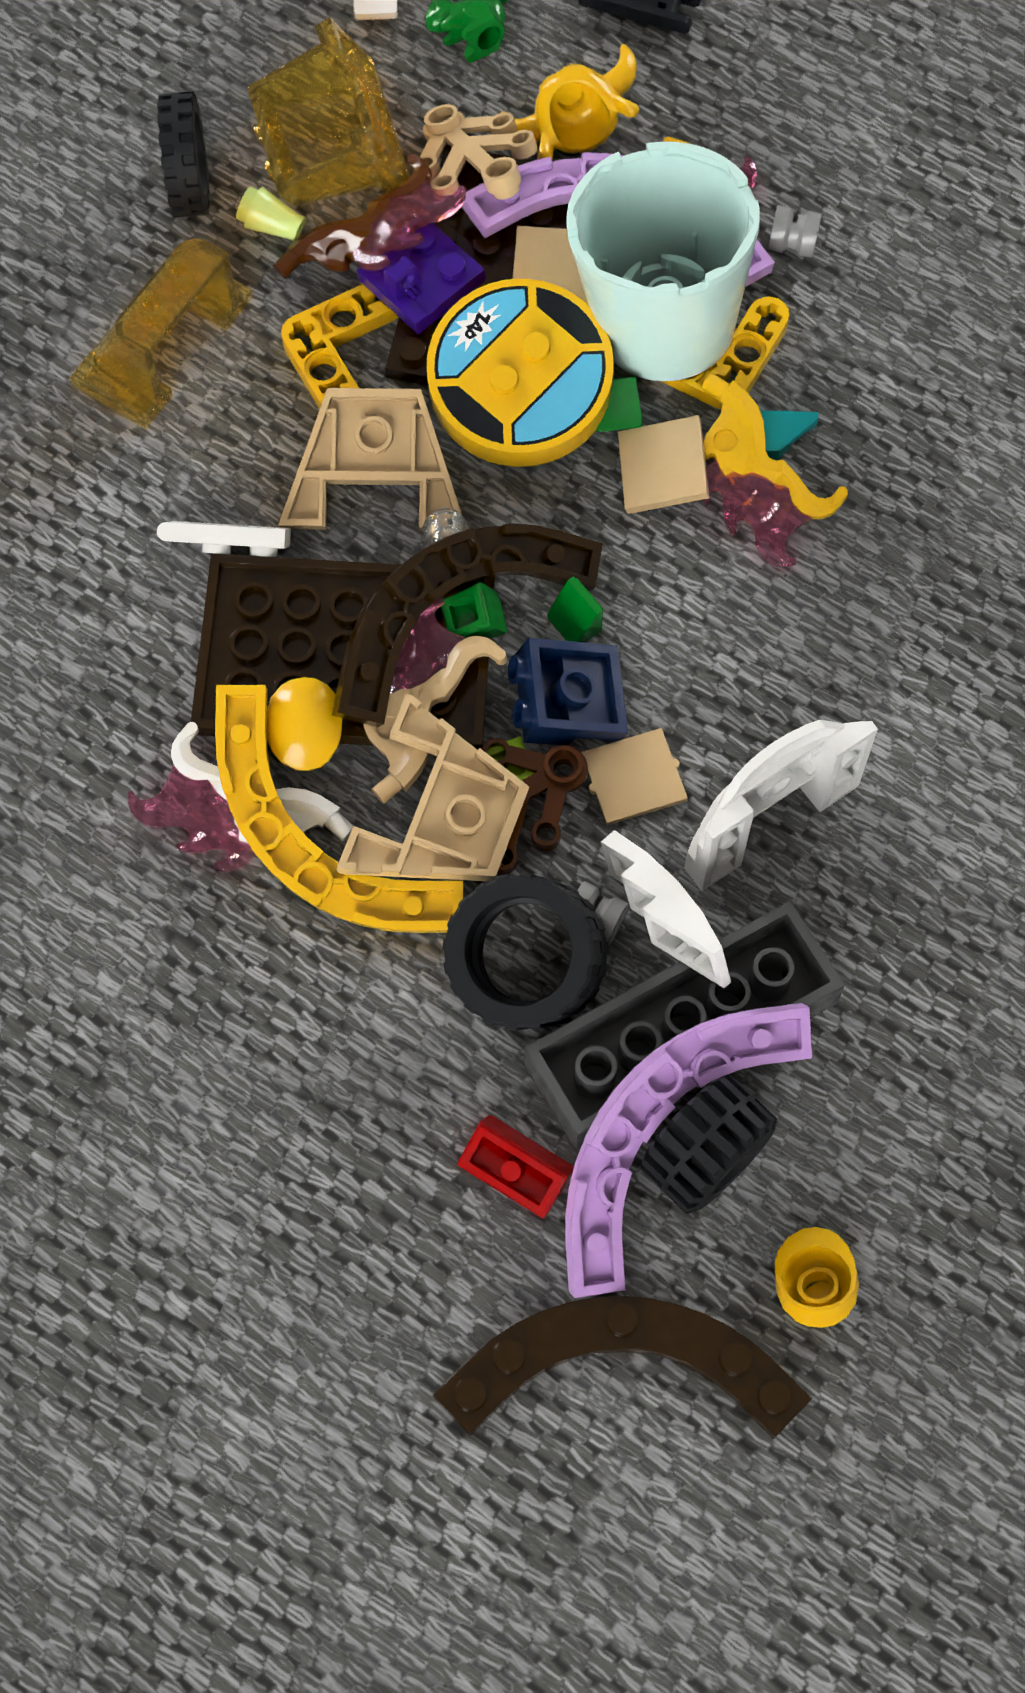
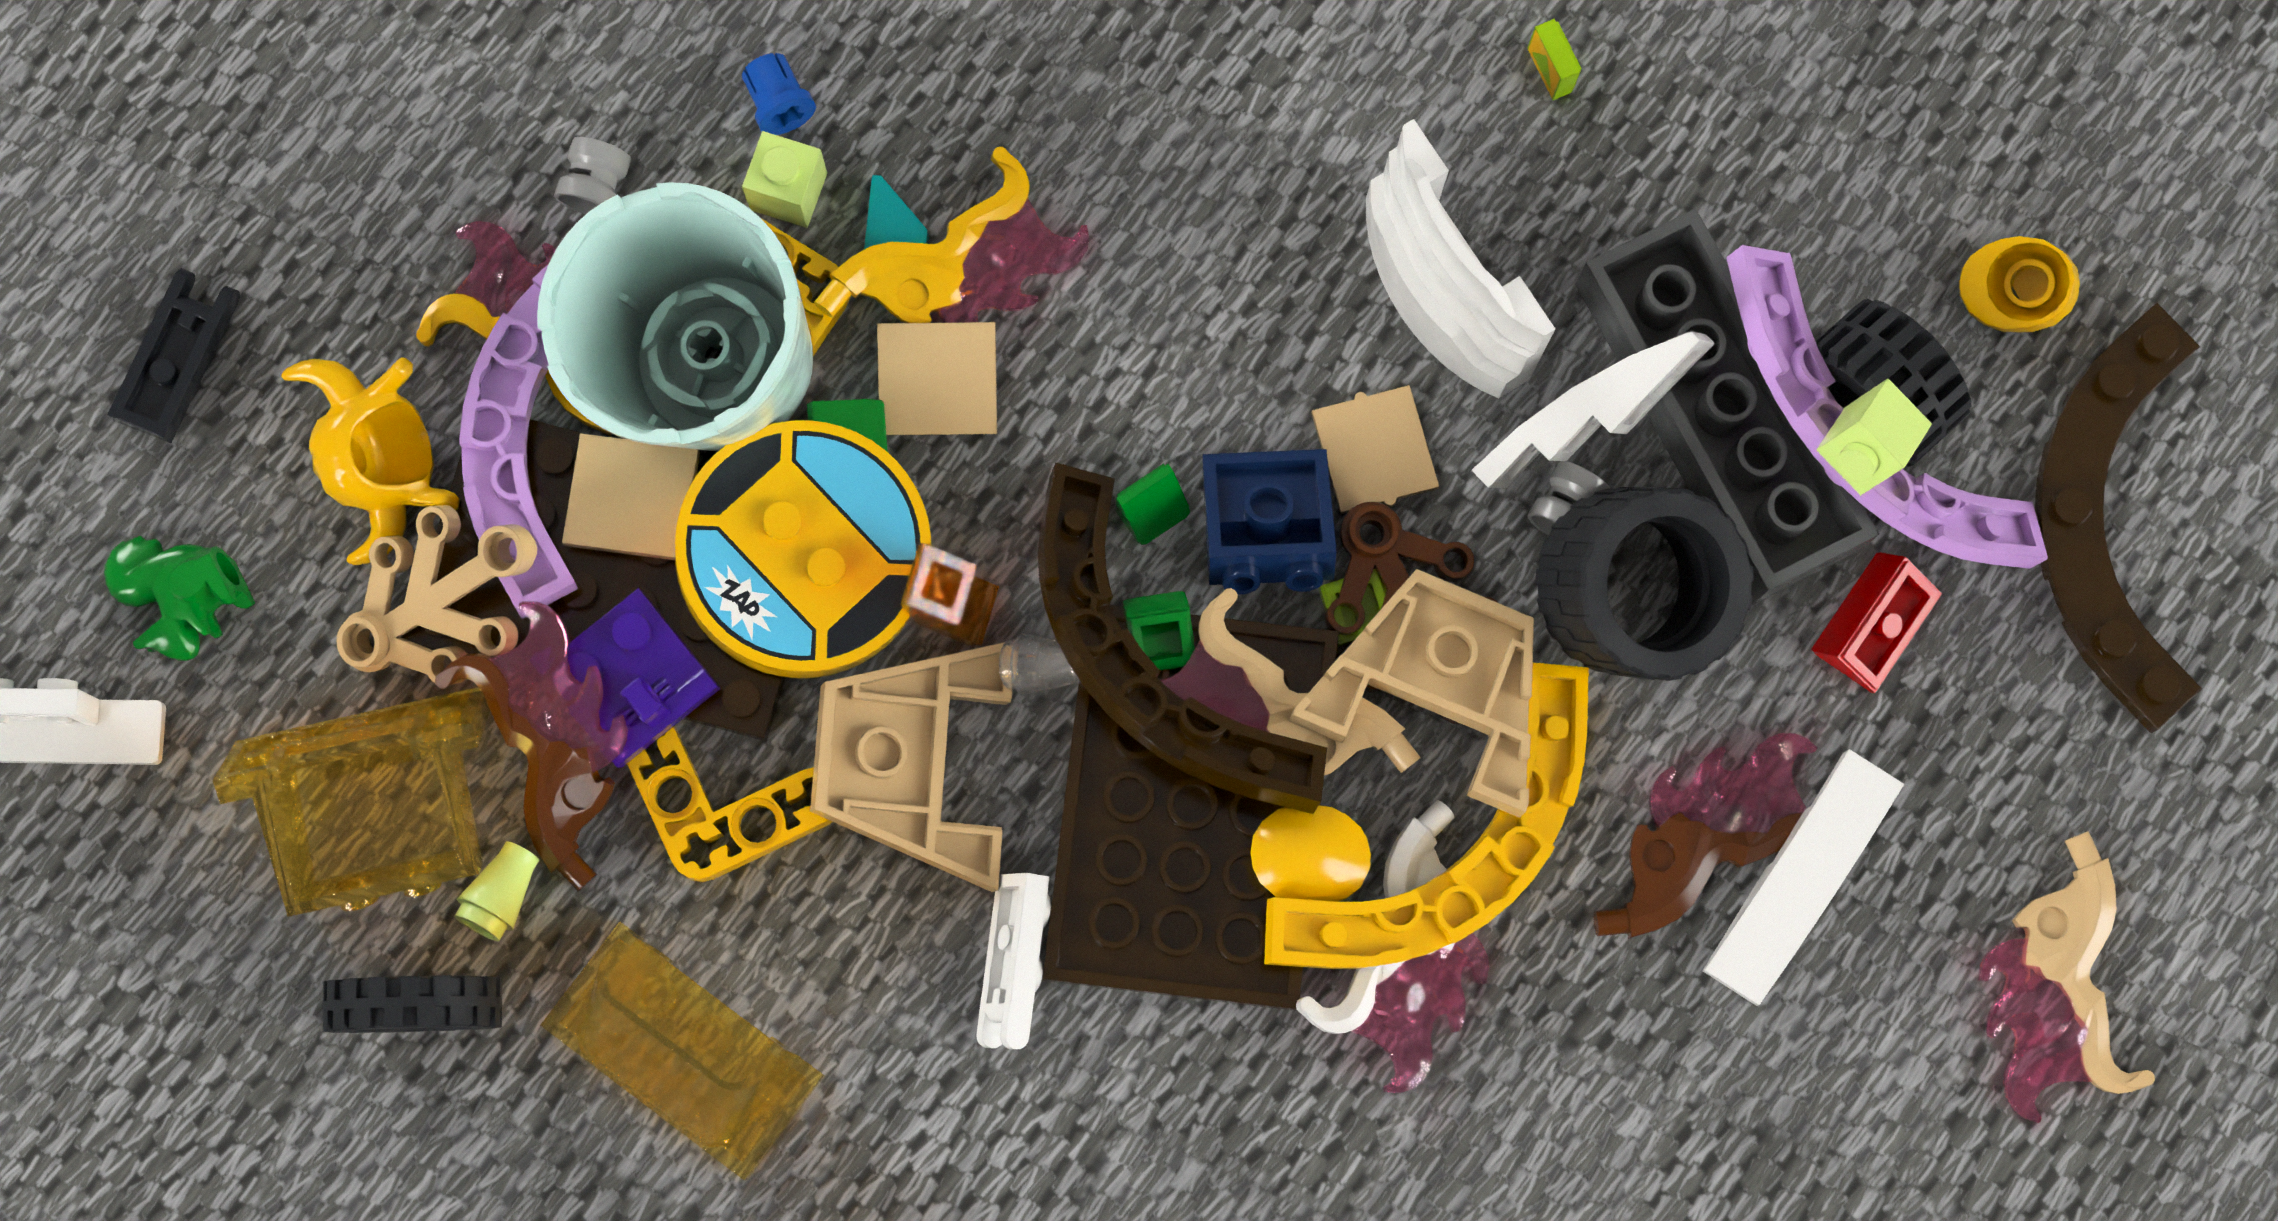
camera: 90 degrees left, 10 degrees up
(212, 1305) = (2048, 988): none -> piece
(299, 1097) = (1803, 877): none -> white slope
(345, 1036) = (1712, 821): none -> piece
(491, 465) = (948, 596): none -> clear orange slope
(646, 1100) = (1874, 437): none -> yellowish green brick
(805, 350) = (784, 179): none -> yellowish green brick
(872, 344) = (777, 94): none -> blue bush
(971, 893) = (1554, 59): none -> lime tile

